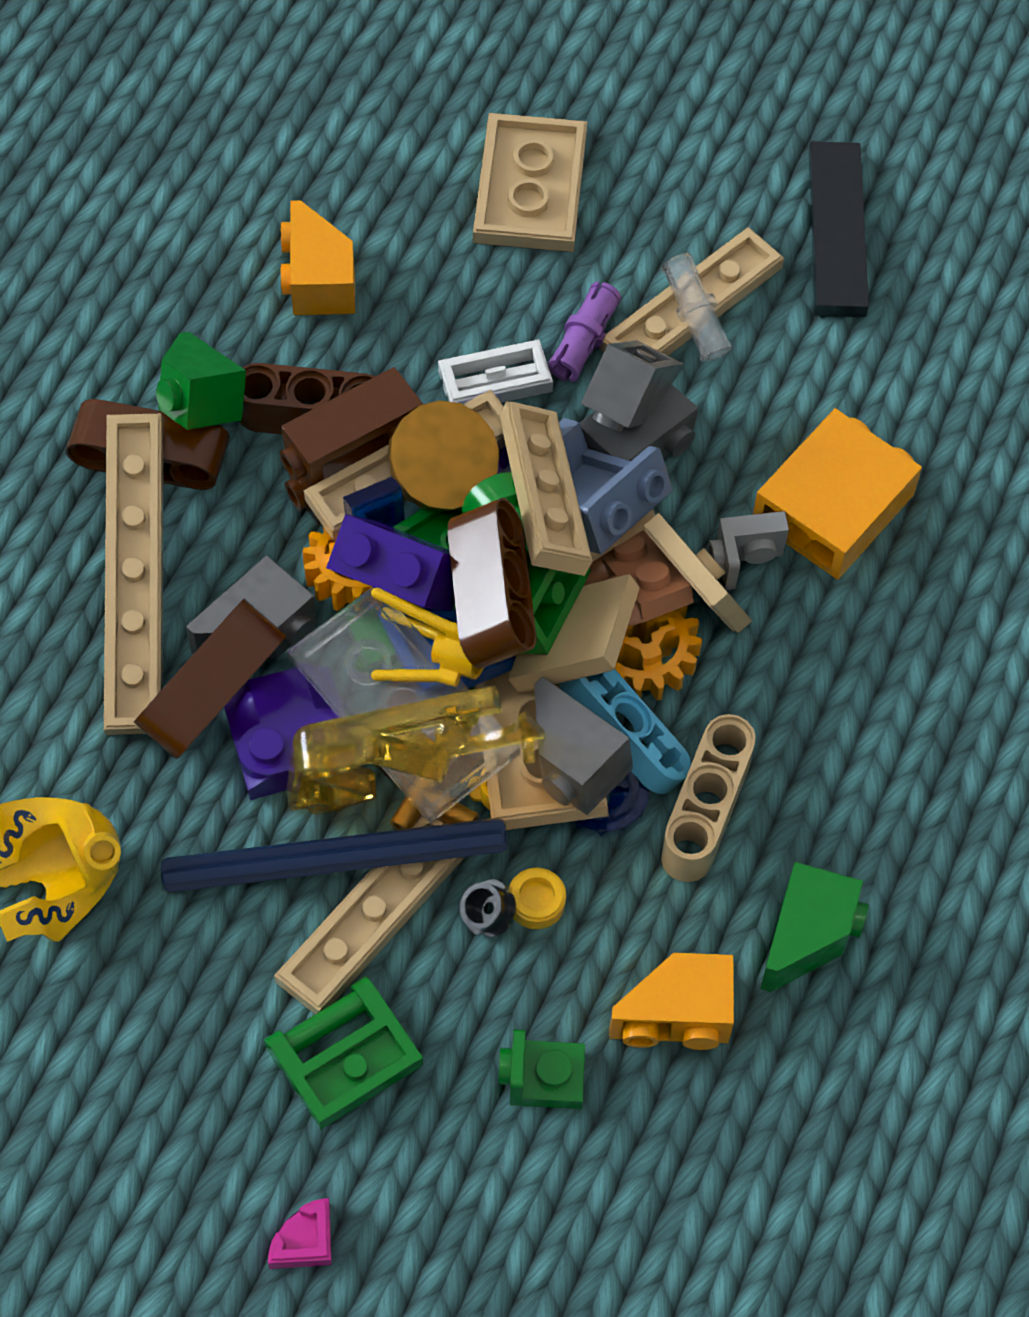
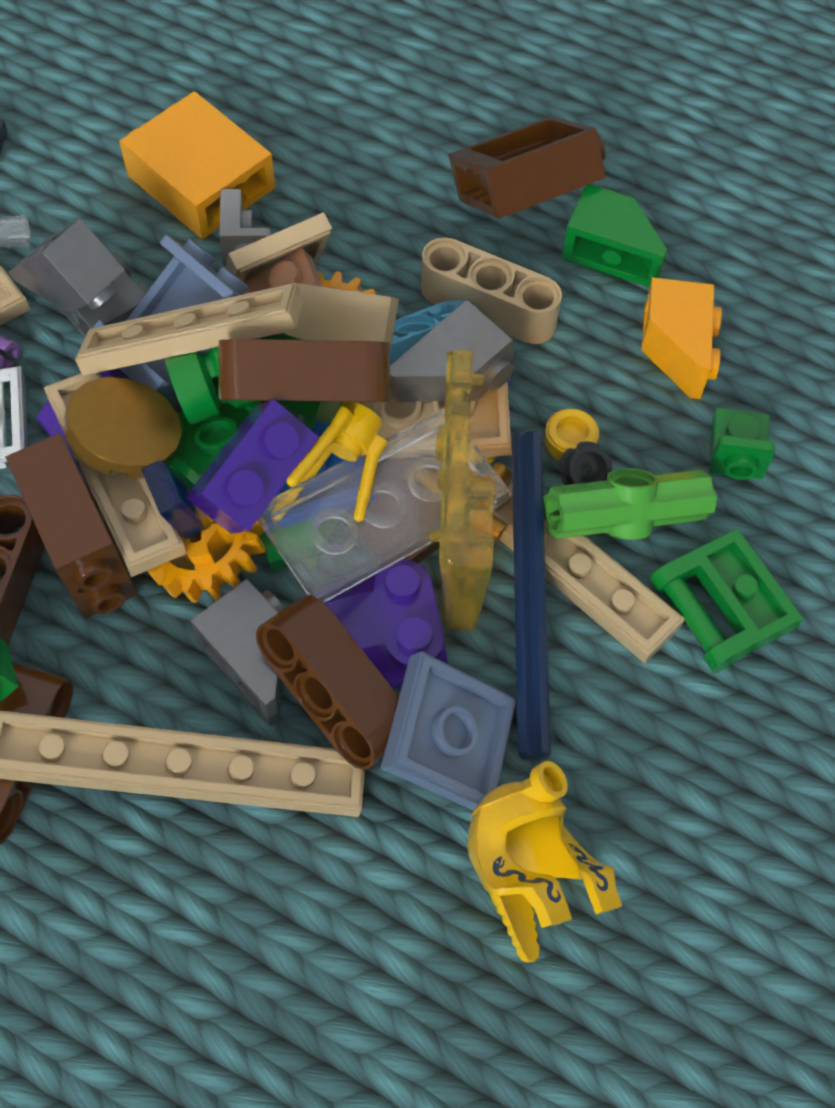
camera: 85 degrees left, 0 degrees up
(173, 789) = (448, 732): none -> sand blue tile
(437, 943) = (628, 503): none -> bright green piece
(901, 798) = (528, 166): none -> reddish brown window

